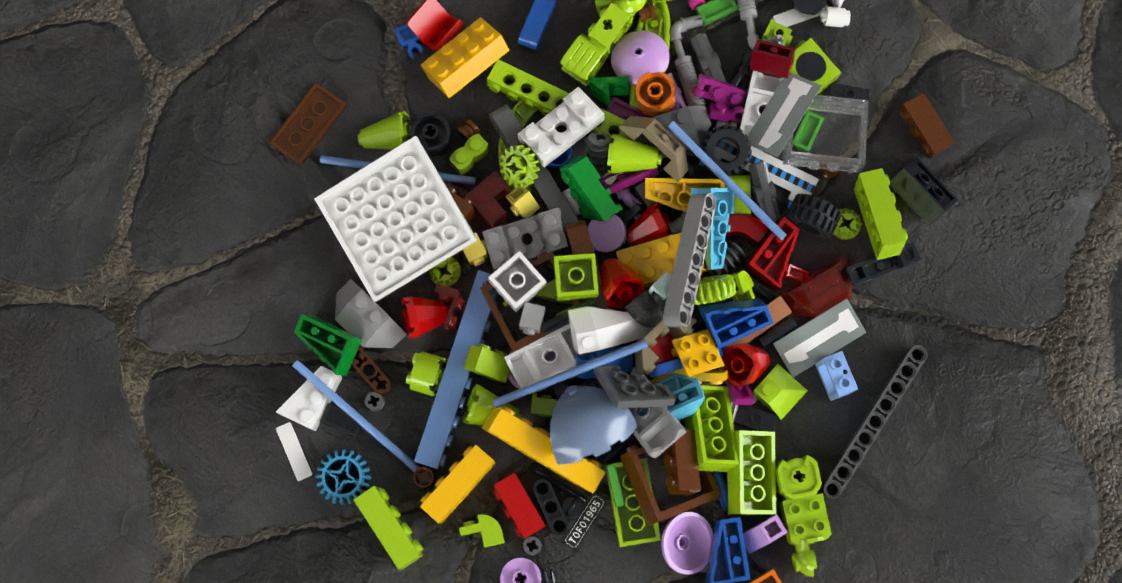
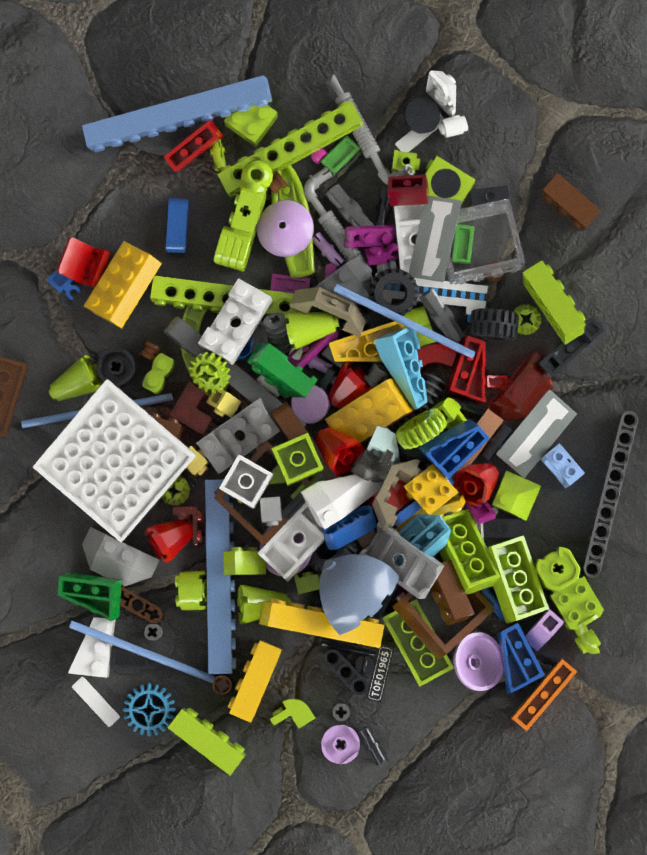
camera: 15 degrees left, 5 degrees up
(518, 506) = (316, 681): red brick -> none
(570, 373) = (322, 549): medium blue piece -> none
(605, 87) = (263, 267): green slope -> none
(615, 486) = (397, 634): bright green tile -> none
(632, 389) = (382, 546): dark grey plate -> none
(652, 84) = (307, 251): orange brick -> none
(689, 260) = (395, 410): light grey beam -> none
(923, 191) = (587, 265): black slope -> none

